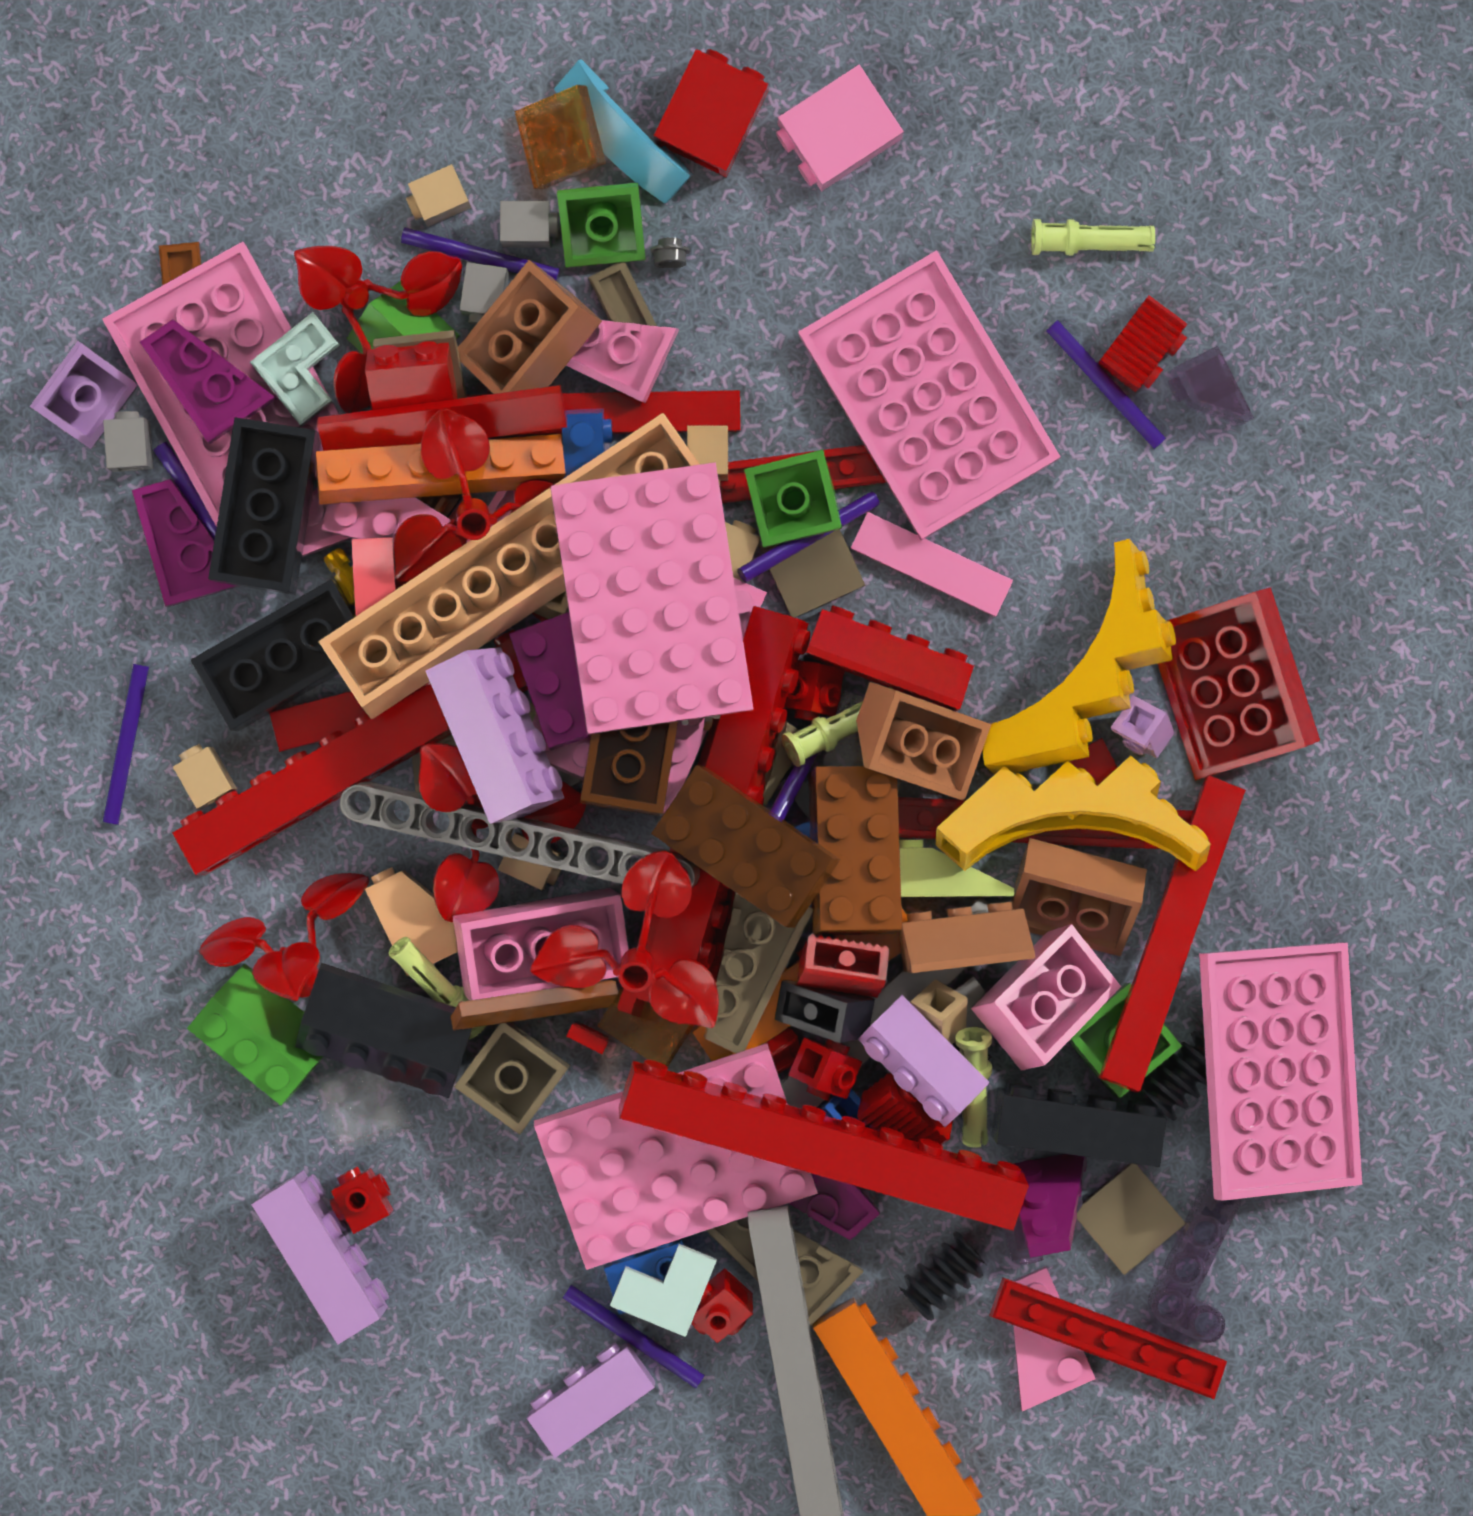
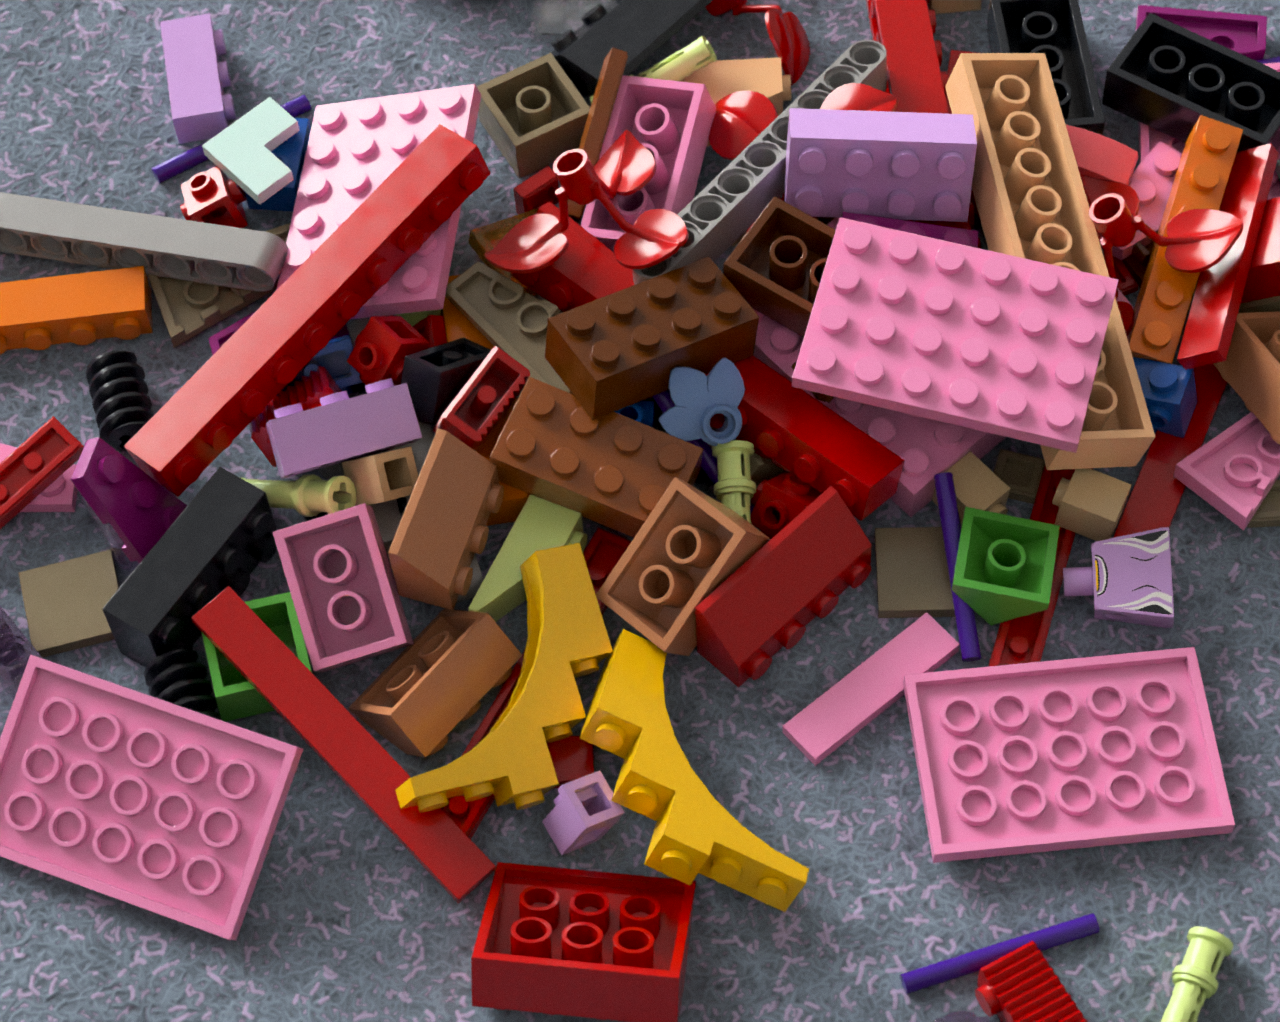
camera: 115 degrees right, 30 degrees down
(762, 402) = (1128, 579): none -> lavender torso
(781, 779) = (700, 398): none -> medium blue plate

